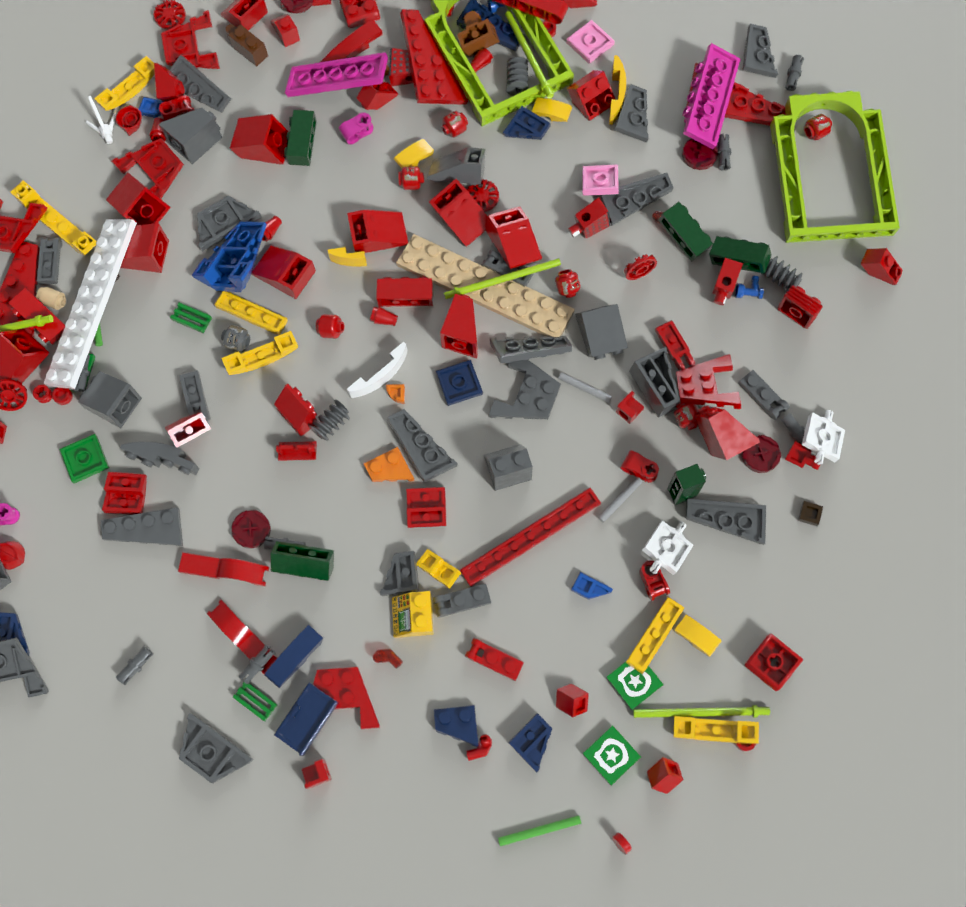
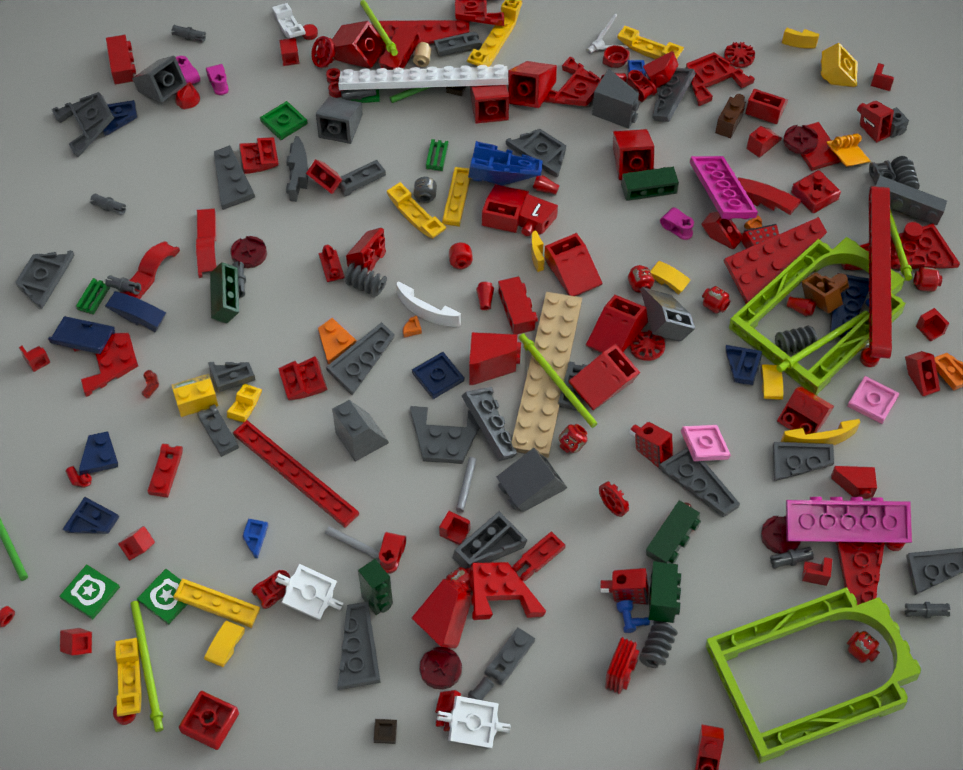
camera: 70 degrees right, 15 degrees down
(305, 243) = (536, 215): none -> red torso
(668, 79) = (856, 480): none -> red slope
(742, 136) = (817, 573): none -> red panel

